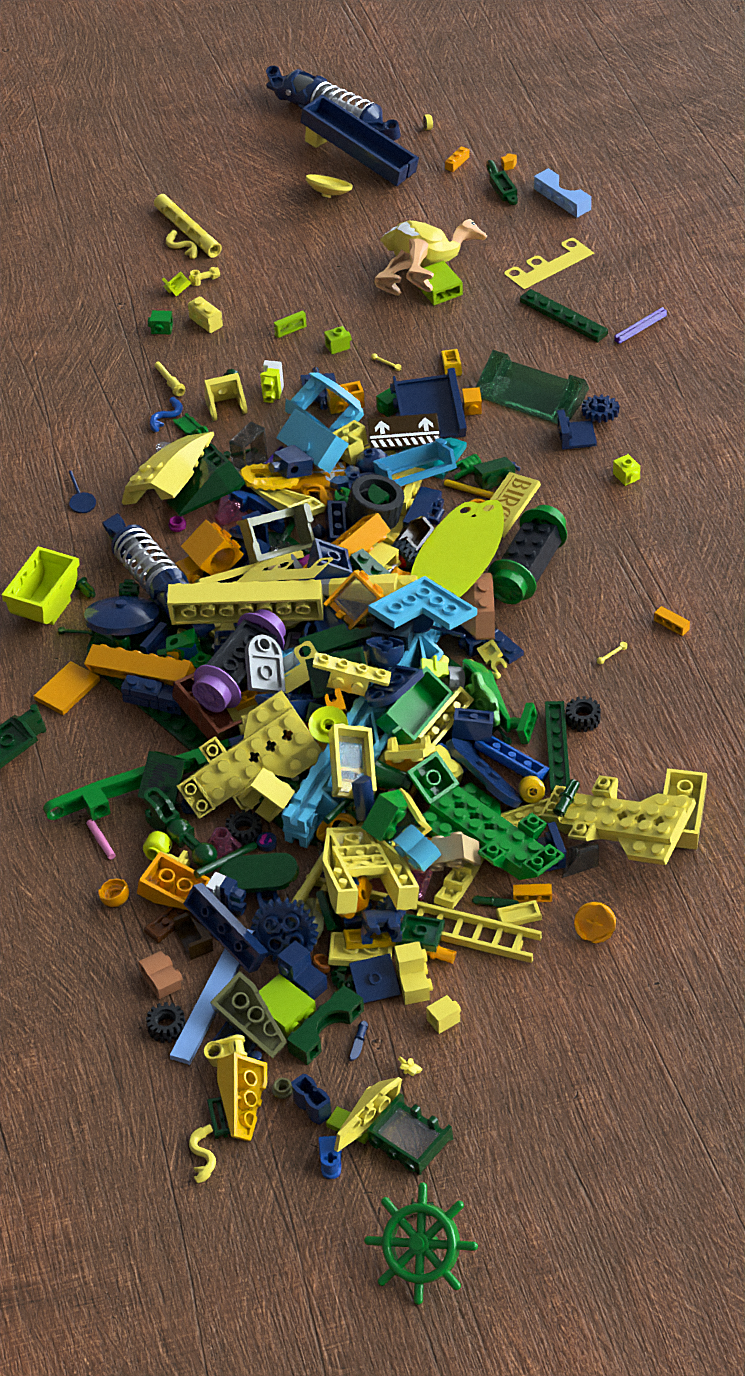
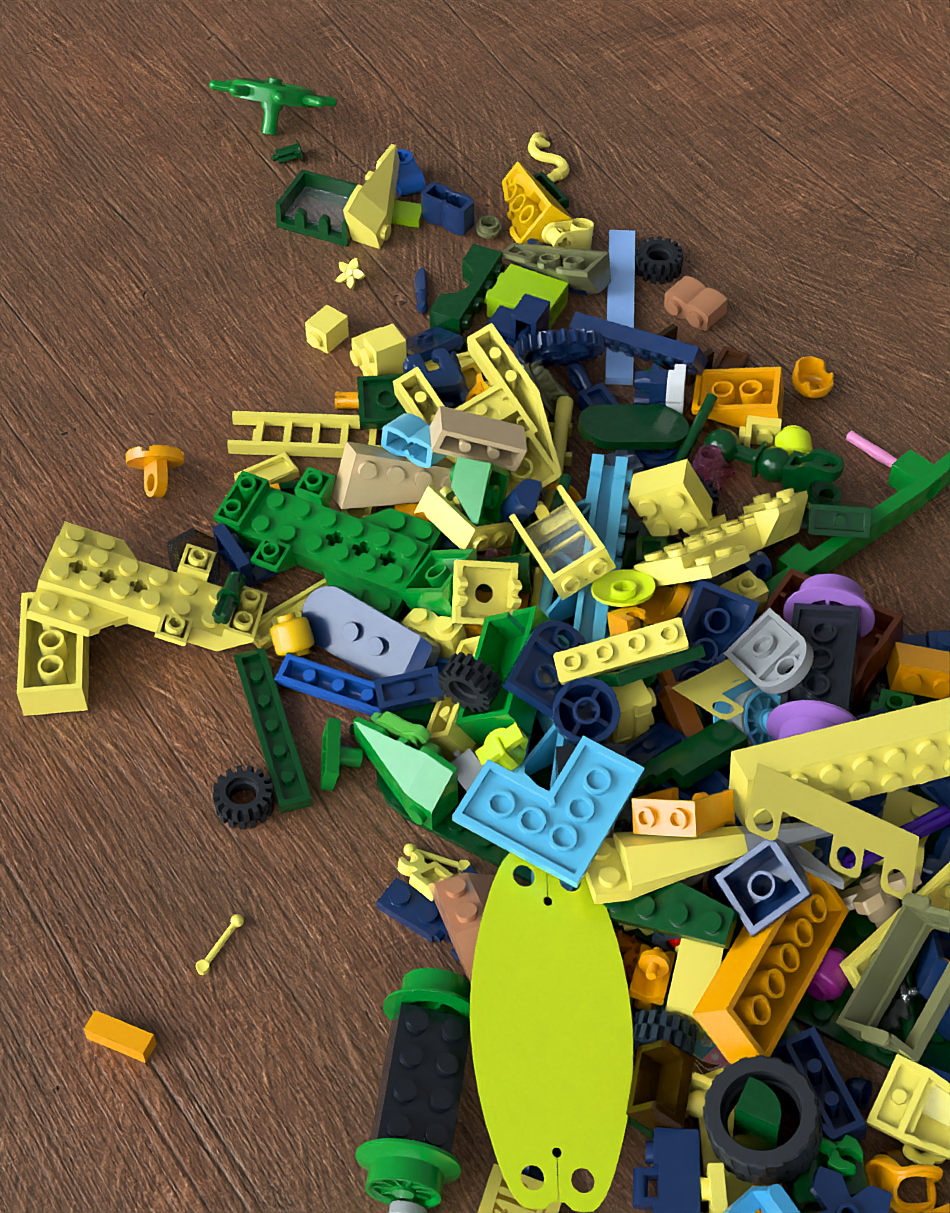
camera: 160 degrees right, 5 degrees up
(378, 826) = (477, 438): none -> tan brick
(440, 688) = (469, 682): none -> black tyre

